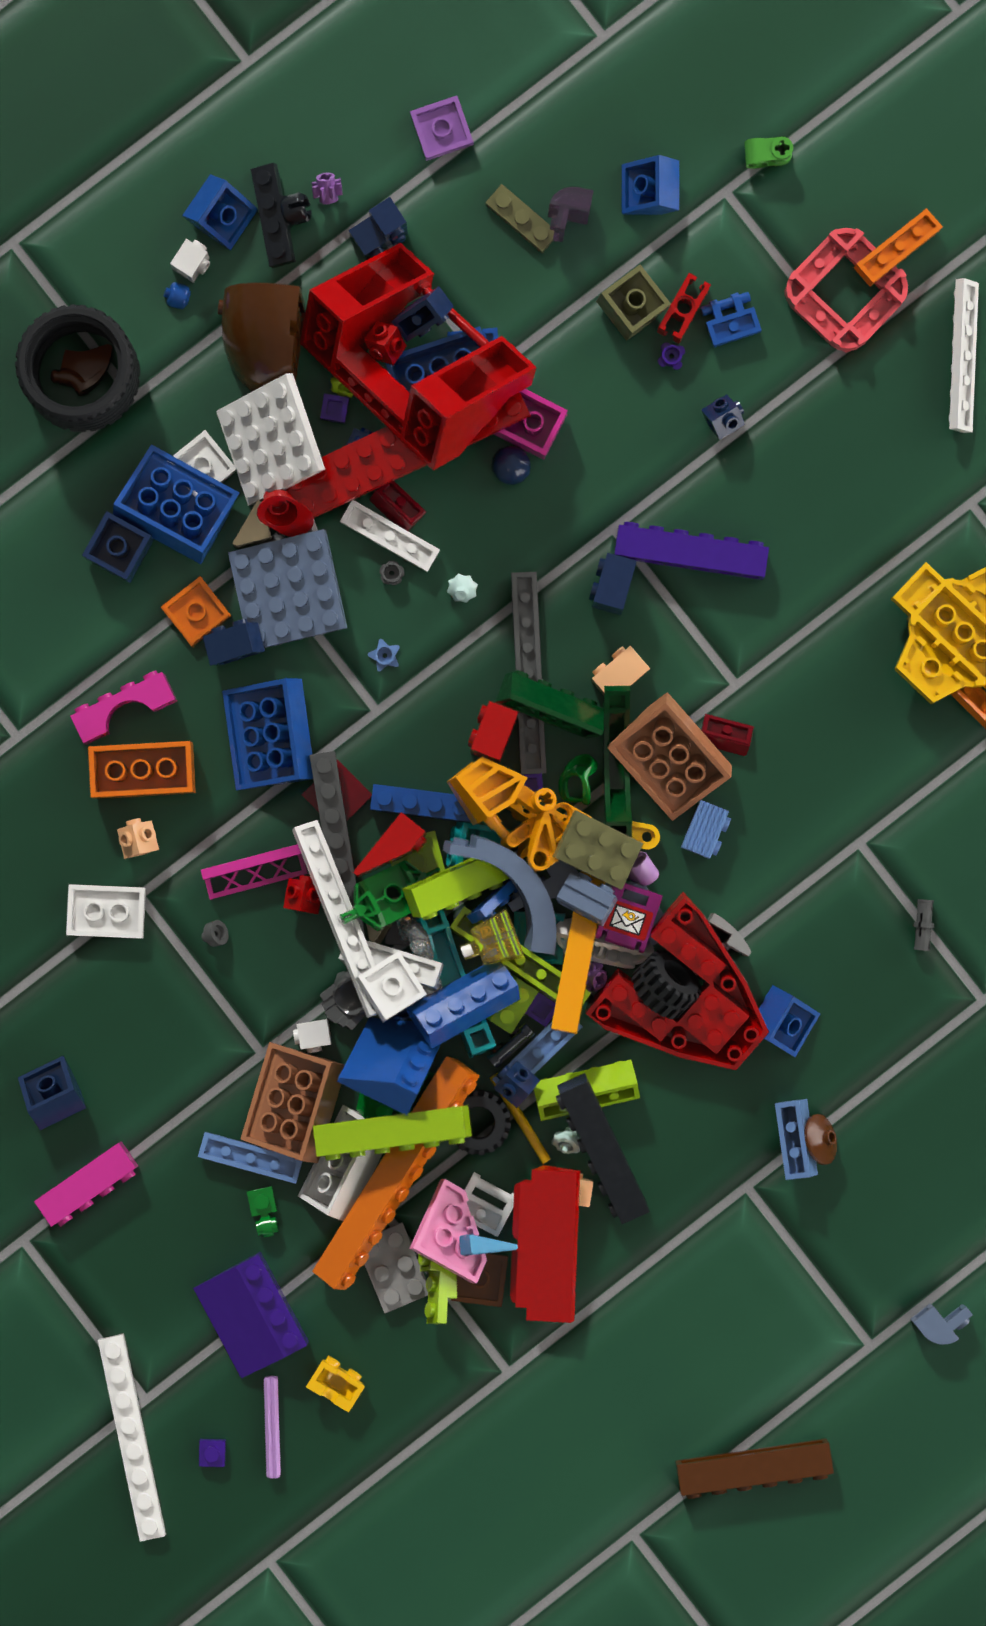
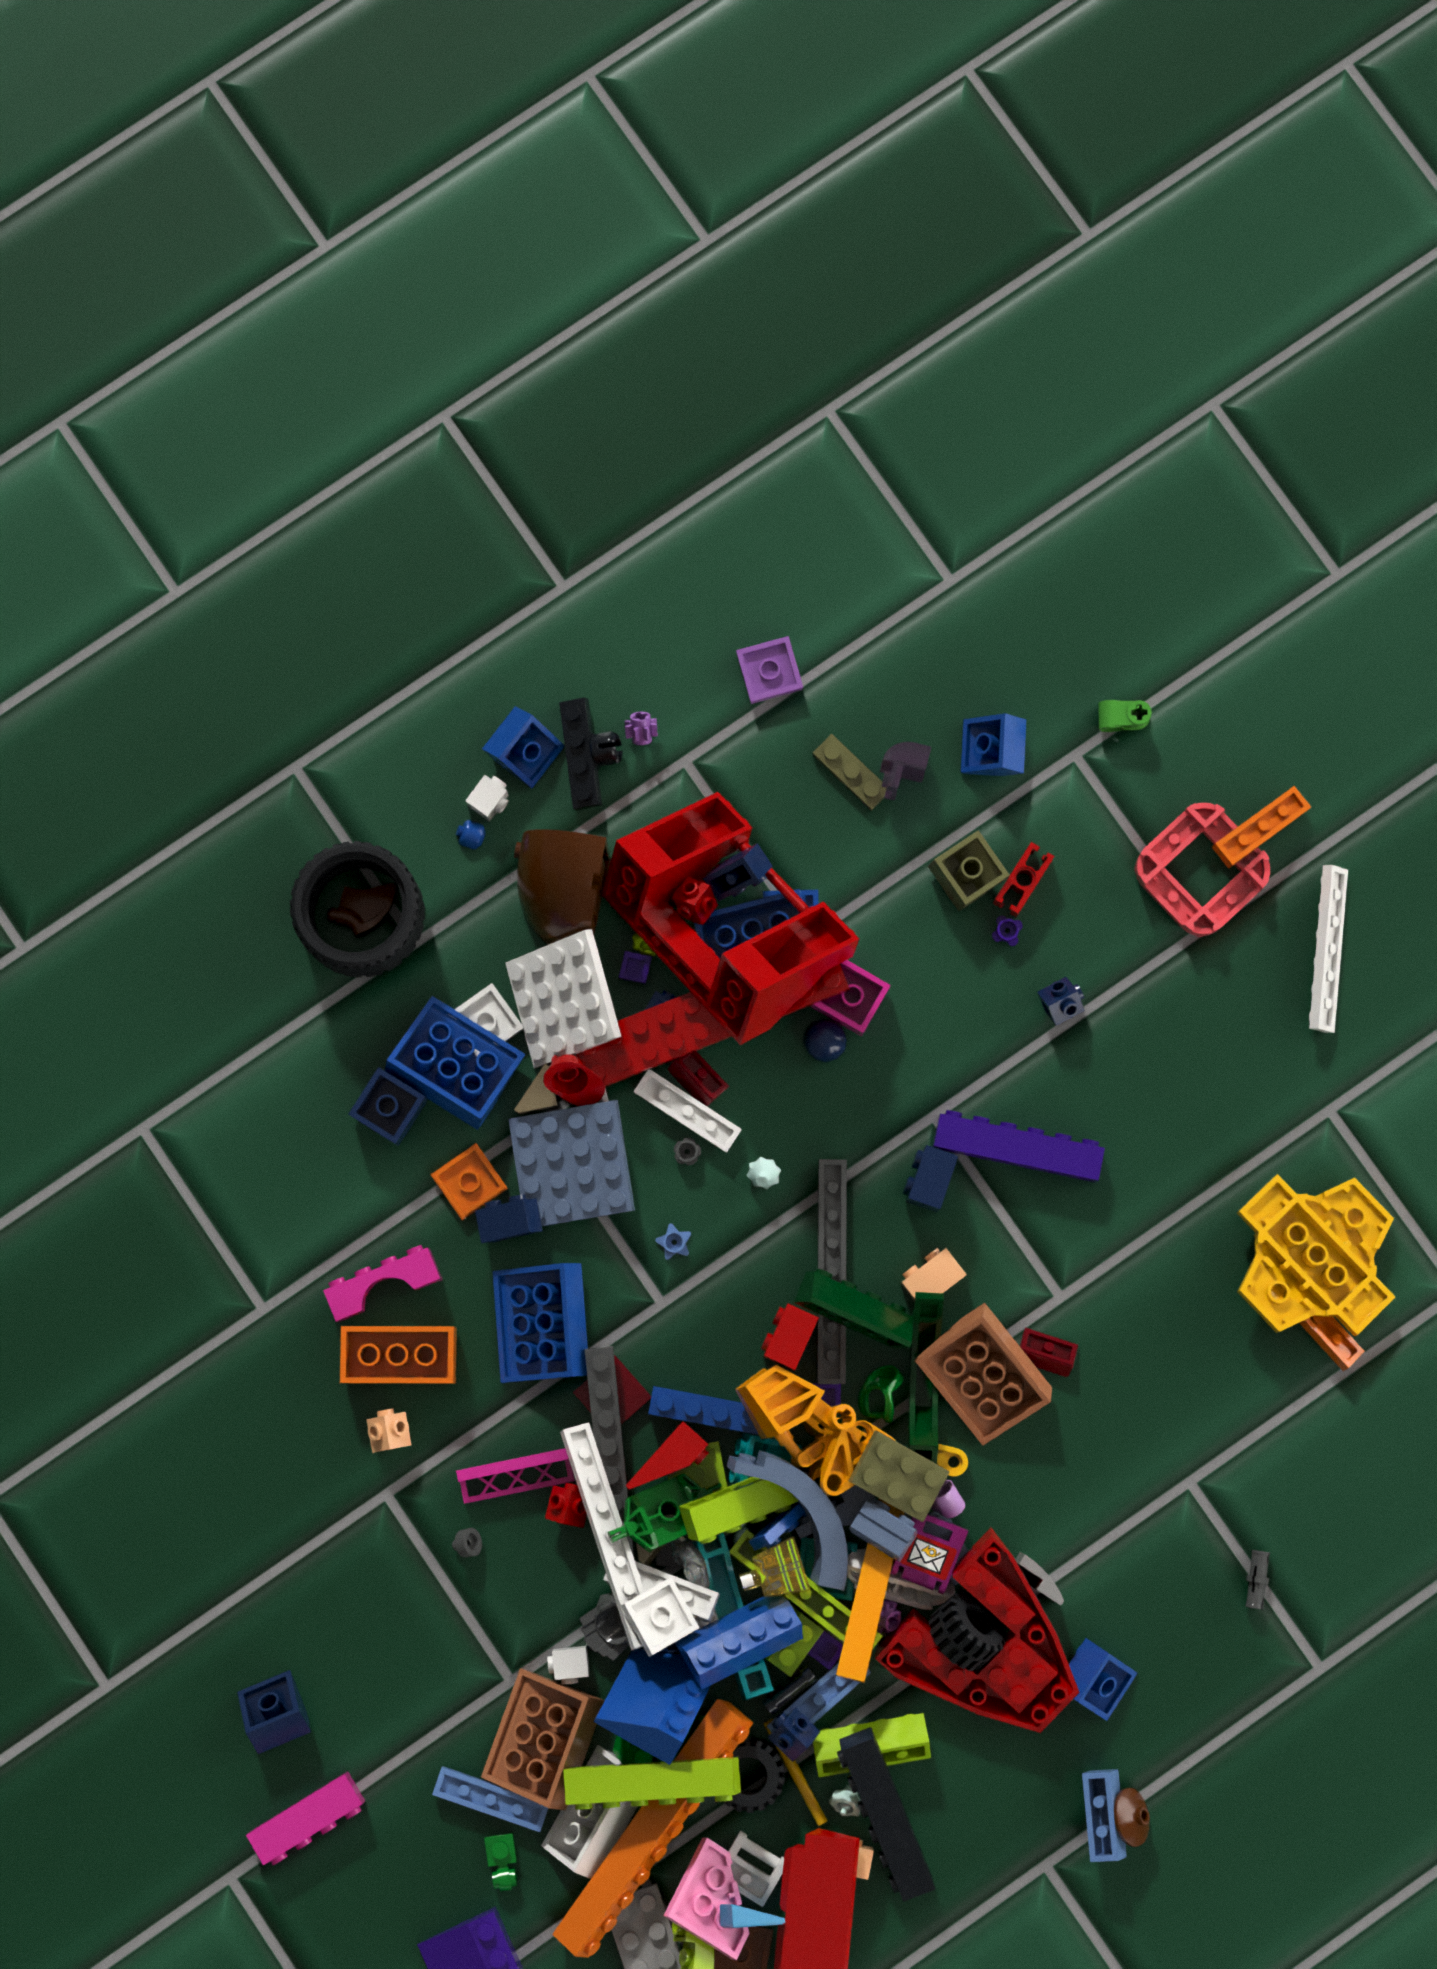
camera: 10 degrees right, 5 degrees down
(106, 911) = (348, 1510): white plate -> none
(380, 230) = (695, 777): dark blue brick -> none
(705, 829) = (1019, 1458): medium blue brick -> none
(732, 326) = (1076, 902): blue plate -> none

